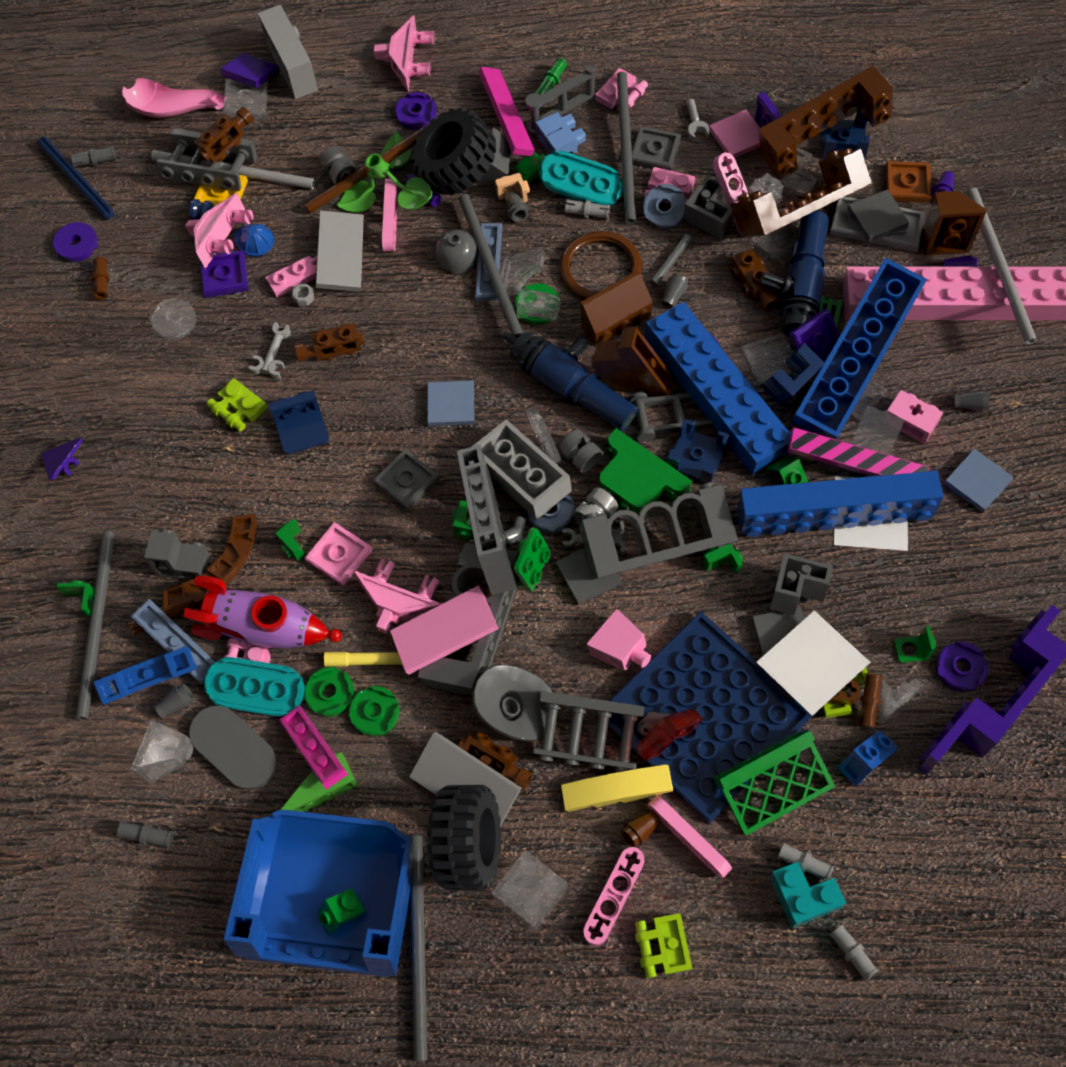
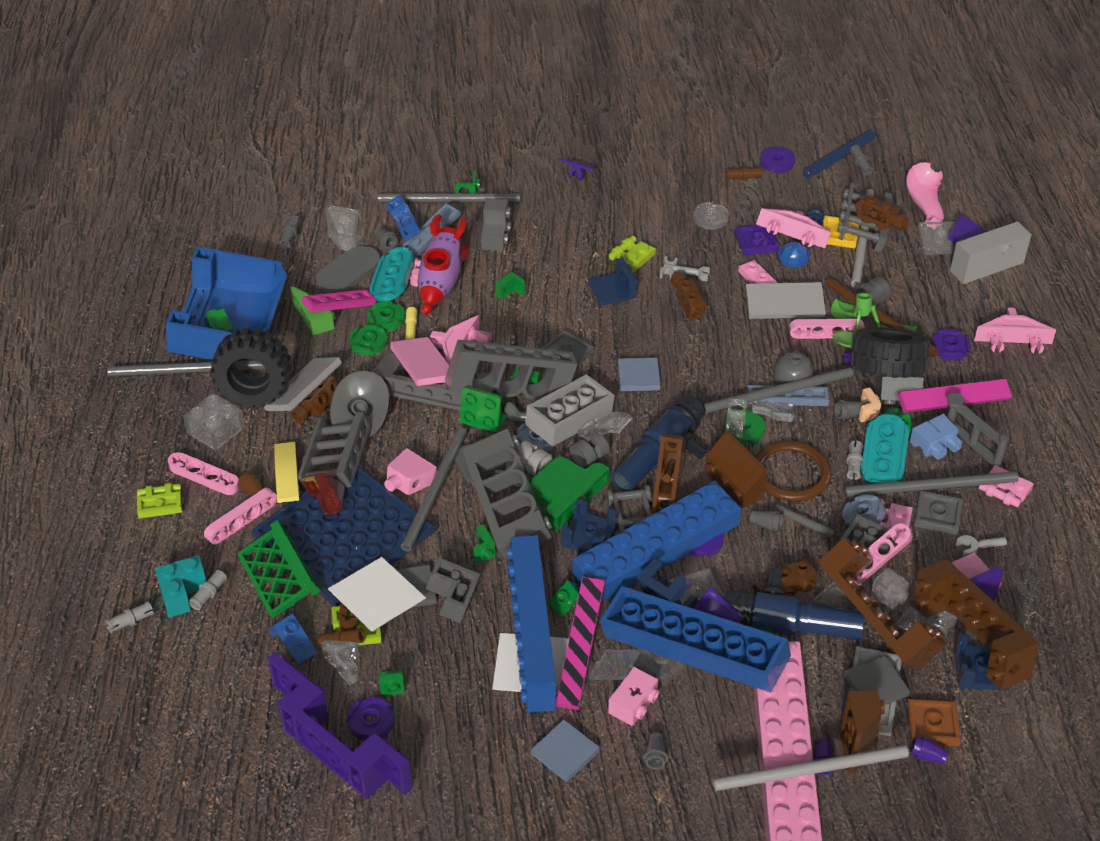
camera: 85 degrees right, 20 degrees down
(224, 567) = (489, 253): reddish brown tile -> none
(302, 295) = (738, 282): light grey tile -> none
(338, 554) = (501, 315): bright pink tile -> none
(552, 76) = (1012, 434): green pin -> none
(646, 611) = (433, 489): none -> dark grey piece

